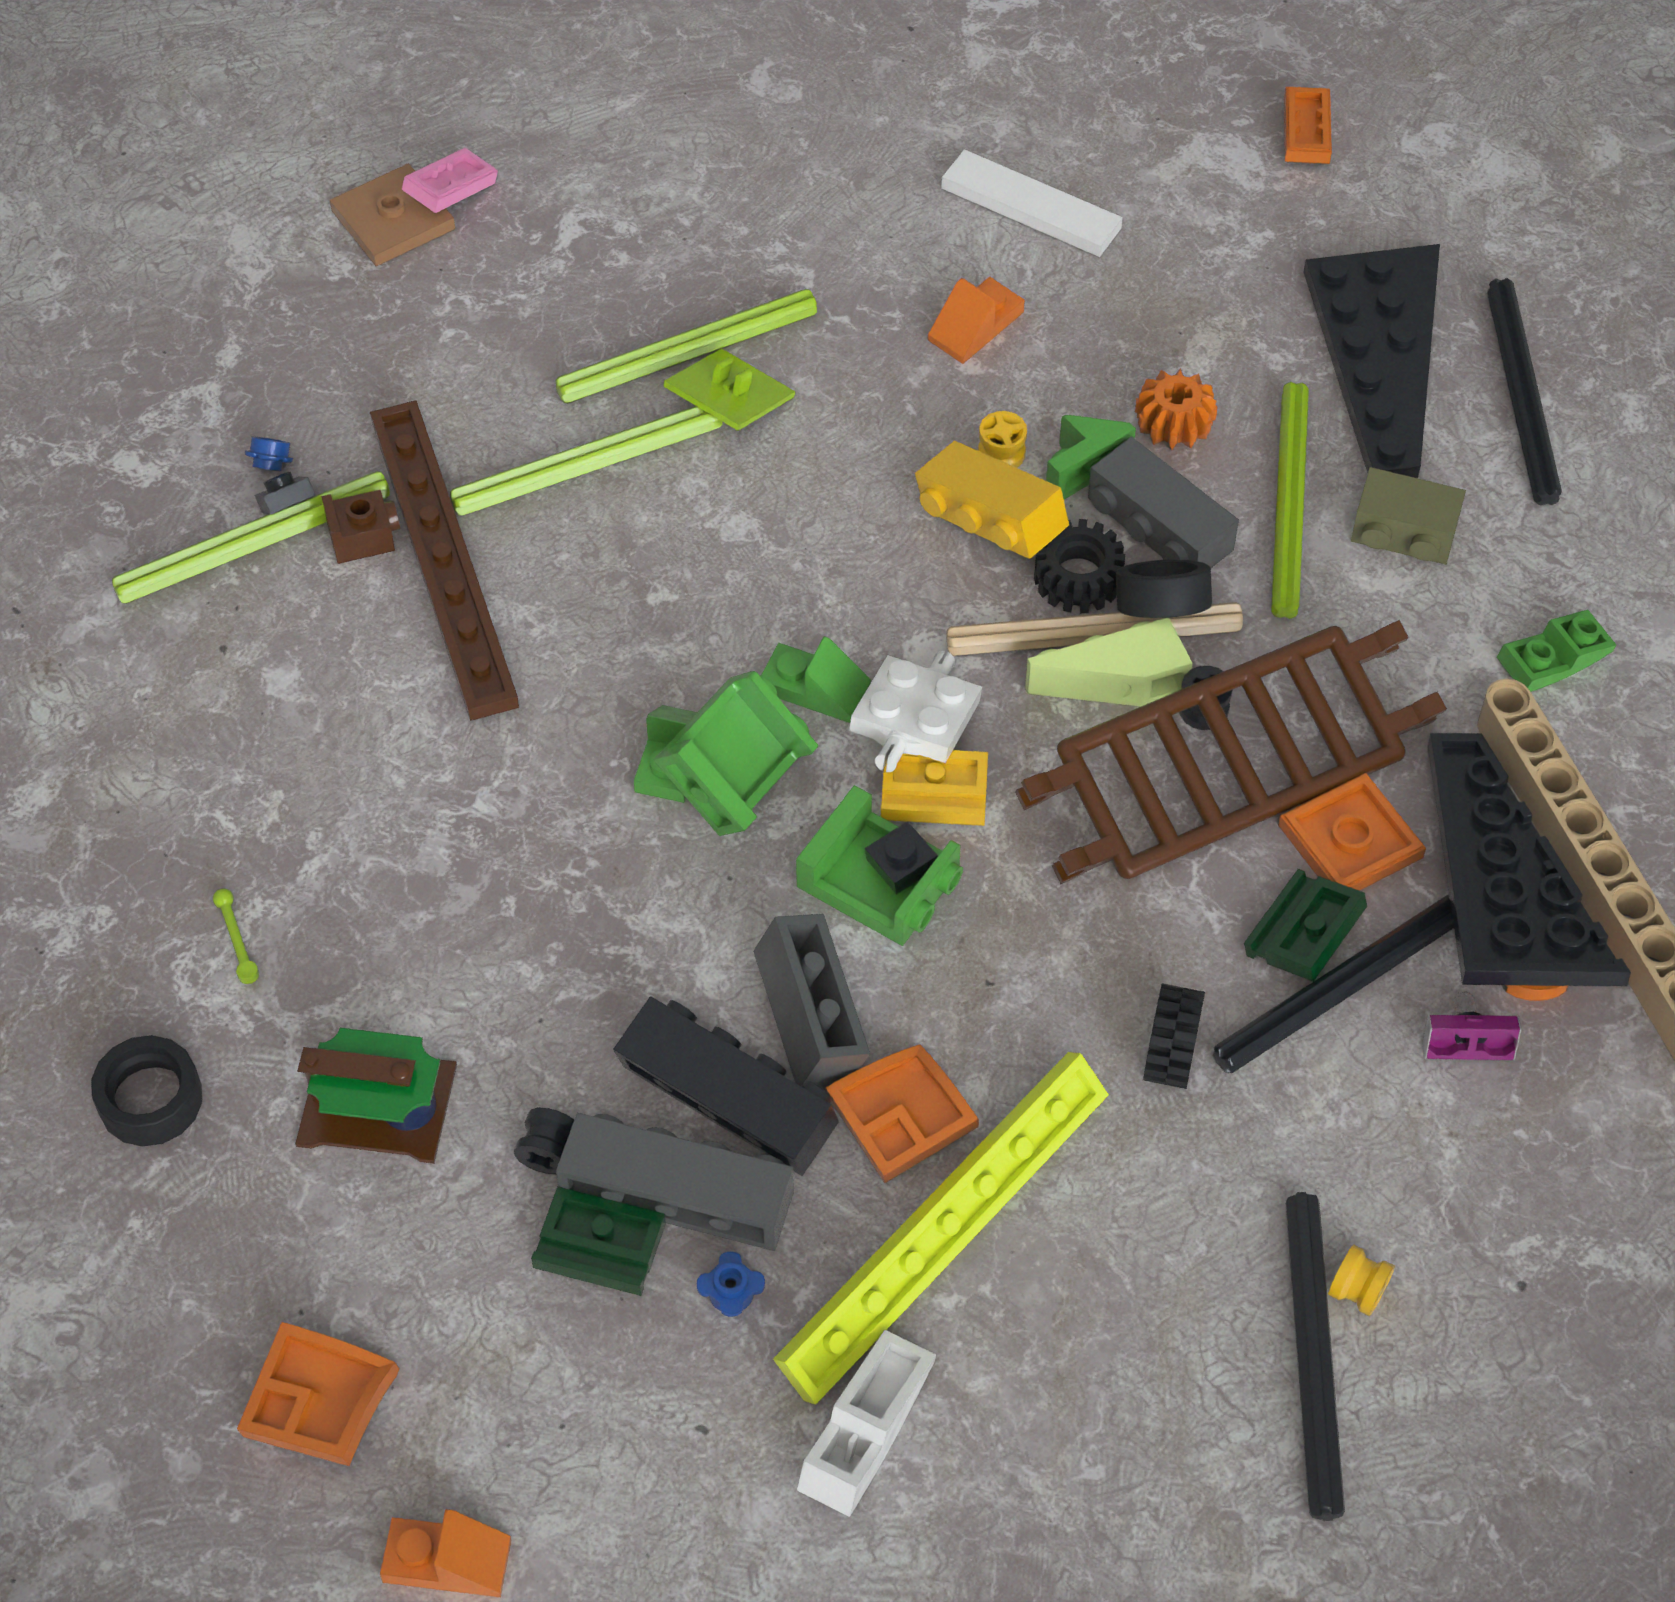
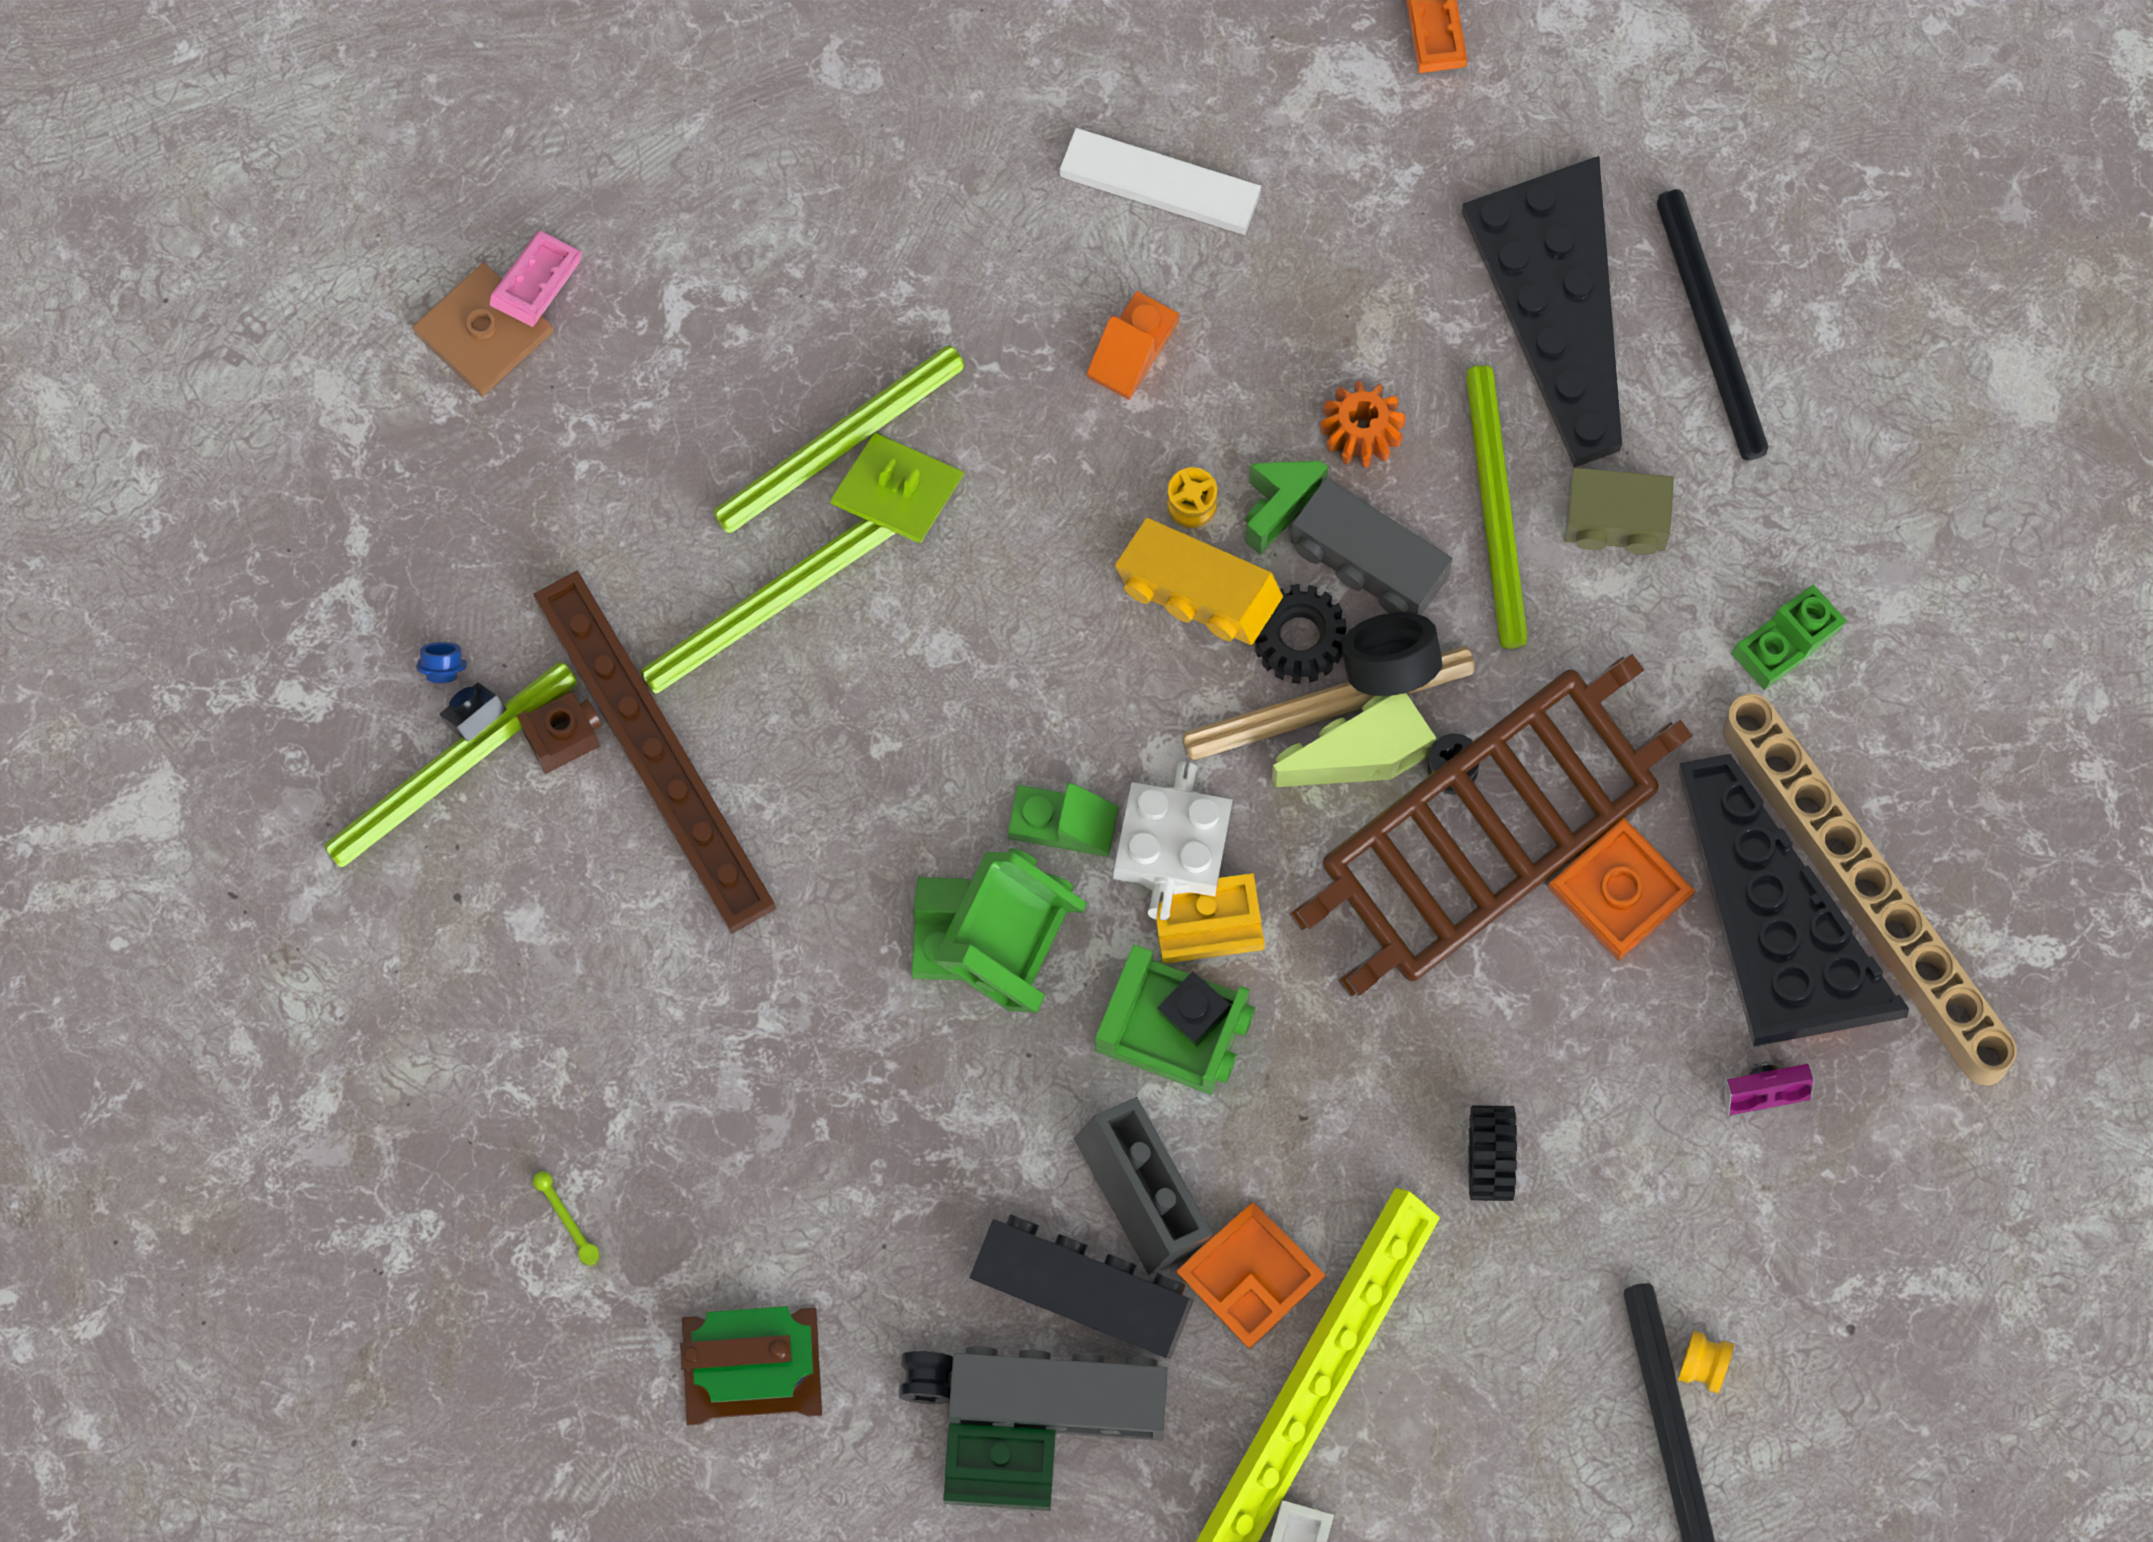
camera: 10 degrees left, 15 degrees up
(130, 1058) = (509, 1371): black tyre -> none
(730, 1300) = (1136, 1498): blue plate -> none
(1306, 925) = (1594, 999): dark green plate -> none
(1334, 986) = (1632, 1058): black axle -> none

